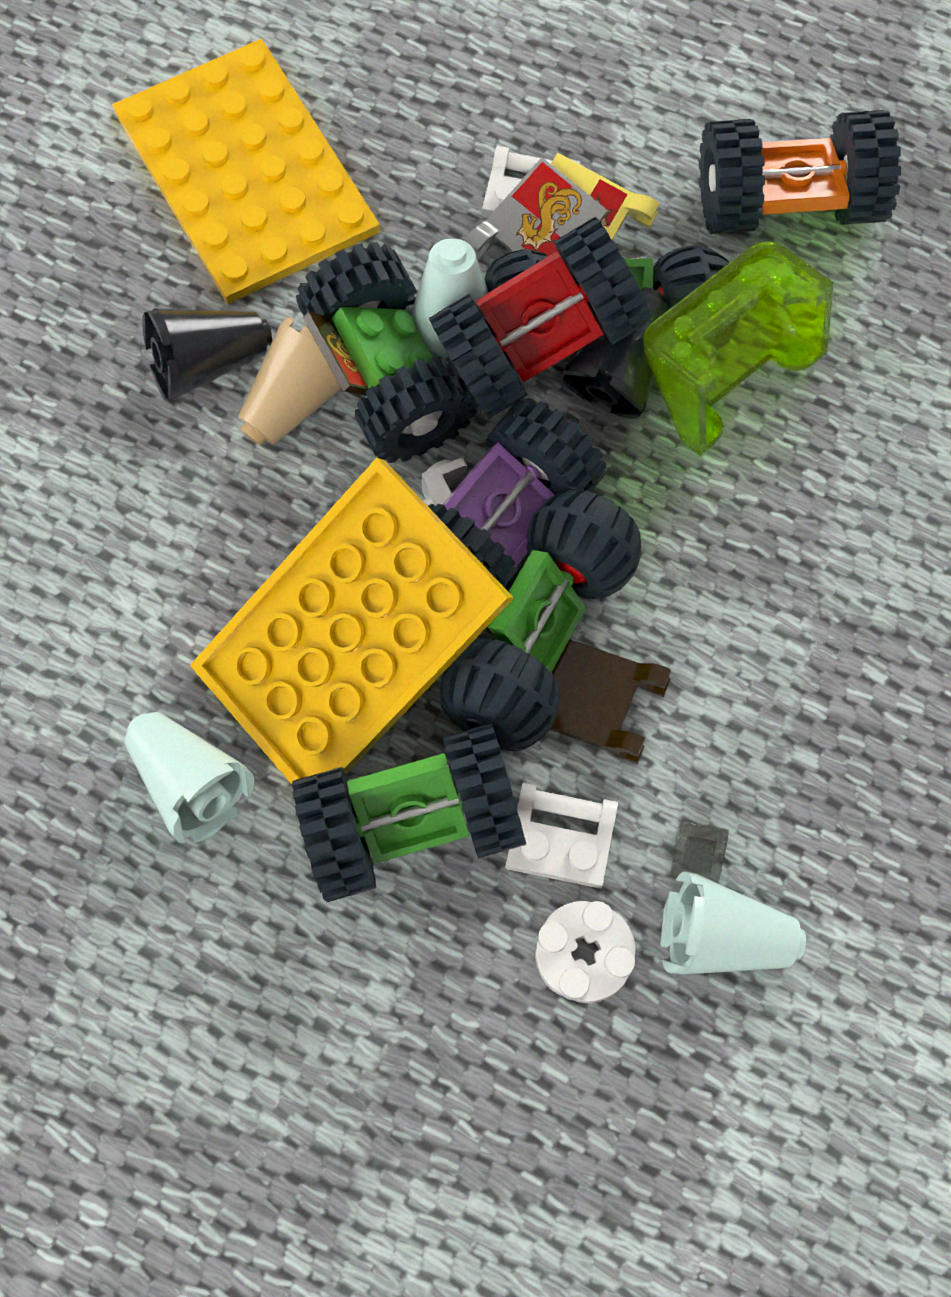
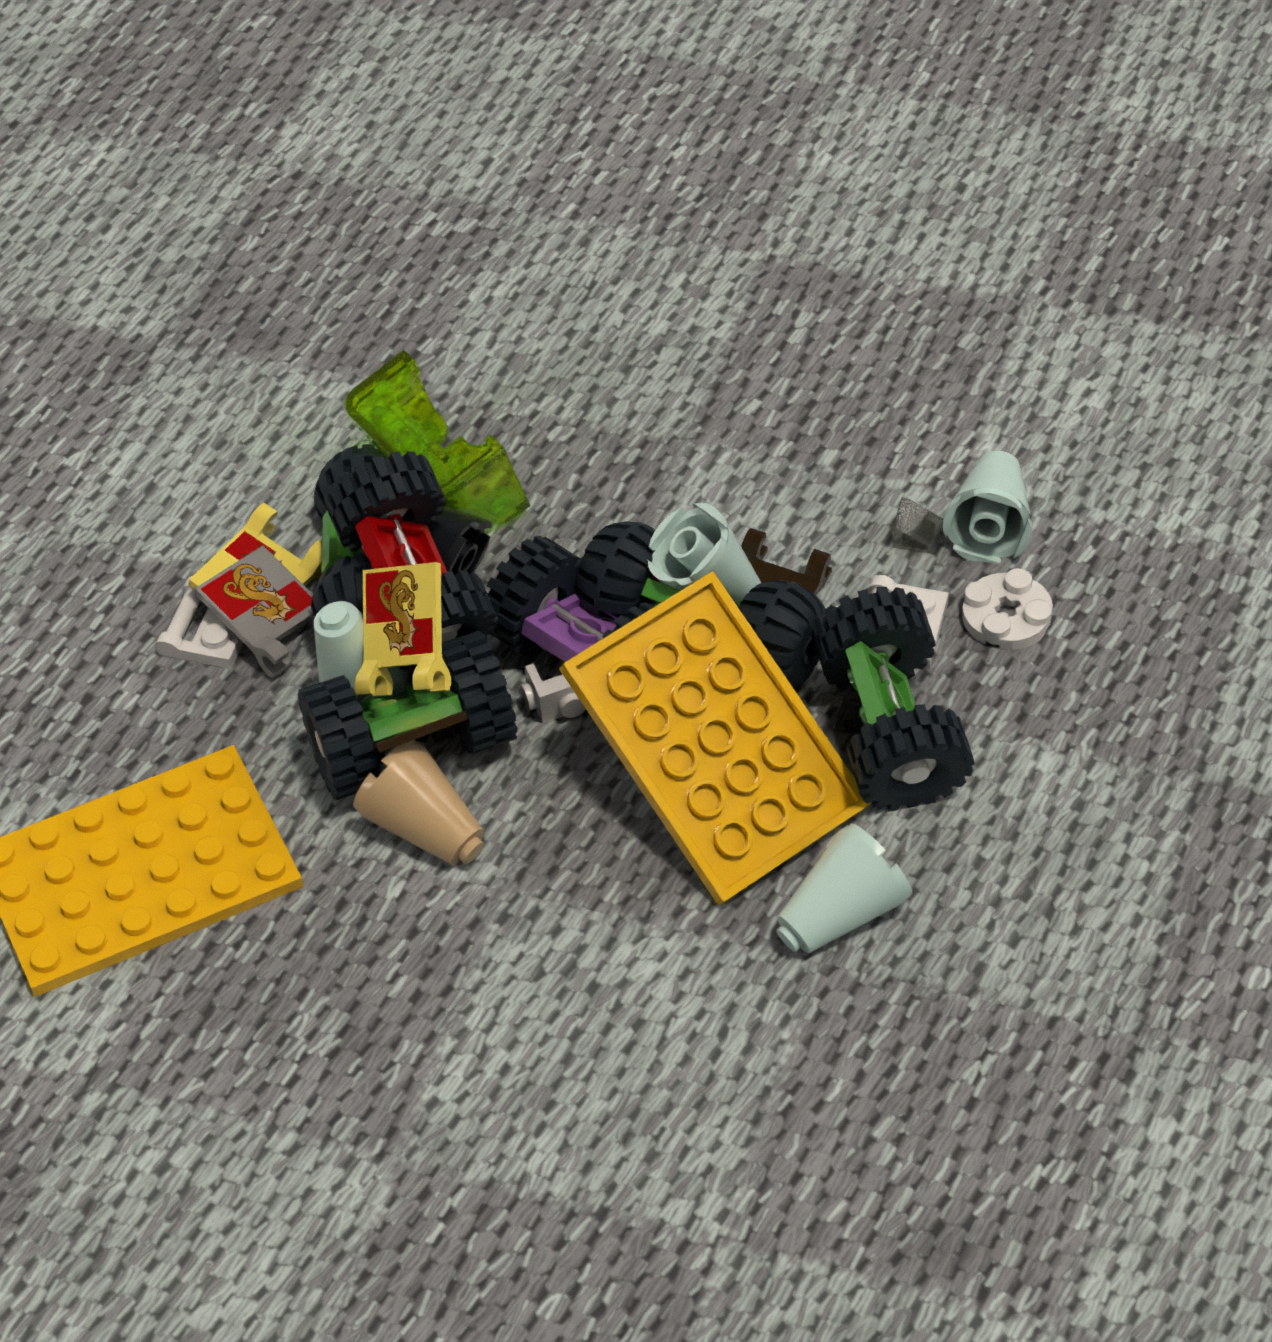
camera: 80 degrees left, 20 degrees down
(201, 345) = (370, 894): black cone -> none
(431, 314) = (402, 628): none -> light yellow flag
(575, 609) = (697, 543): none -> light aqua cone
(844, 173) = (246, 428): black plate -> none

